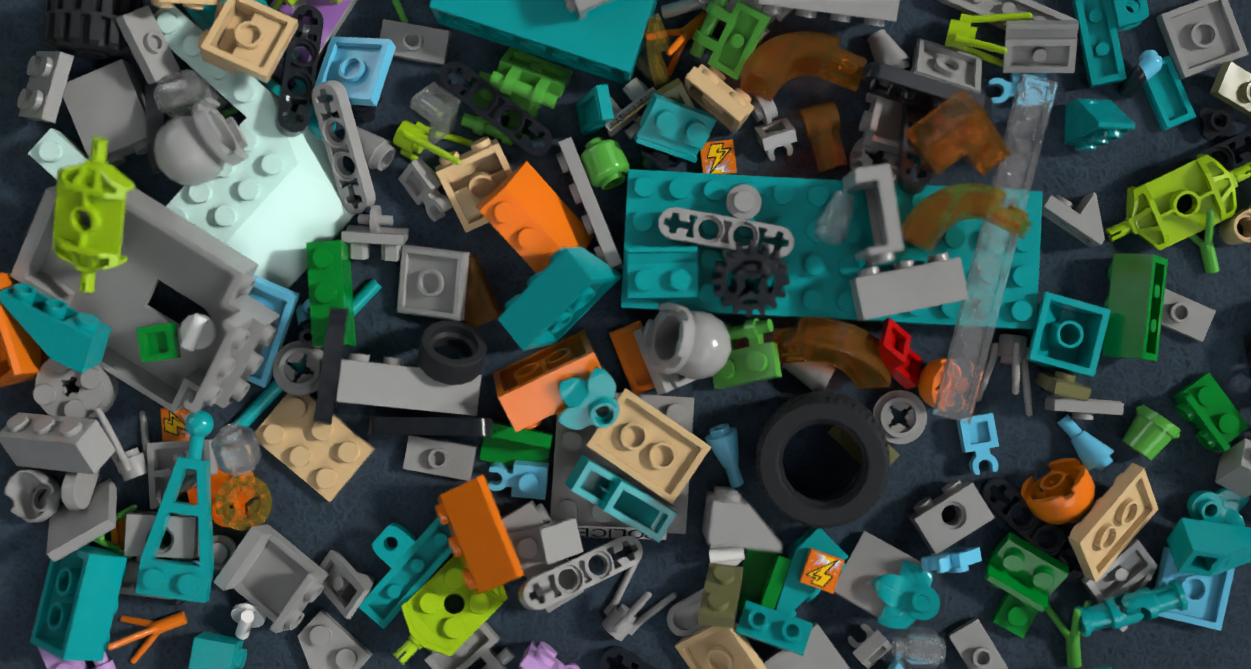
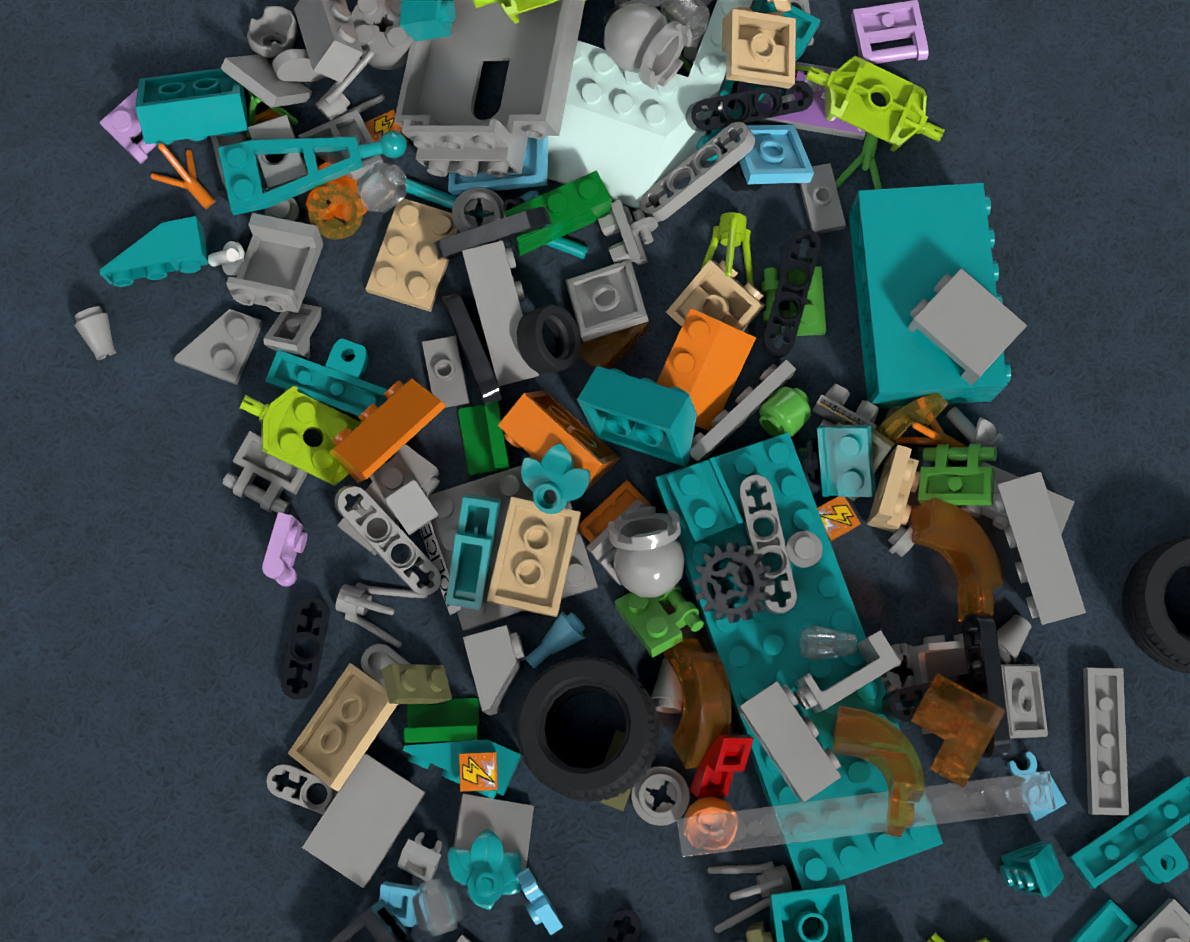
camera: 75 degrees right, 10 degrees down
(158, 342) = (453, 78): green plate -> none
(197, 332) = (476, 108): white plate -> none
(376, 150) = (707, 201): light grey cone -> none
(423, 186) = (691, 257): light grey plate -> none
(437, 107) = (769, 241): clear panel -> none
(526, 478) = (457, 458): medium azure plate -> none
(531, 78) = (835, 313): bright green plate -> none
(594, 110) = (830, 380): teal tile -> none
(726, 555) = (459, 677): white plate -> none
(774, 628) = (404, 748): teal hinge -> none
(775, 135) = (883, 563): light grey tile -> none
(823, 129) = (907, 605): clear orange piece -> none
(962, 35) = (1060, 706): lime plant -> none
(970, 514) = (591, 906): light grey brick -> none
(978, 438) = (674, 883): medium azure plate -> none
(1040, 46) = (1084, 785): light grey plate -> none
(1082, 223) = (928, 903): light grey slope -> none
(1148, 66) = (1114, 905): arm -> none

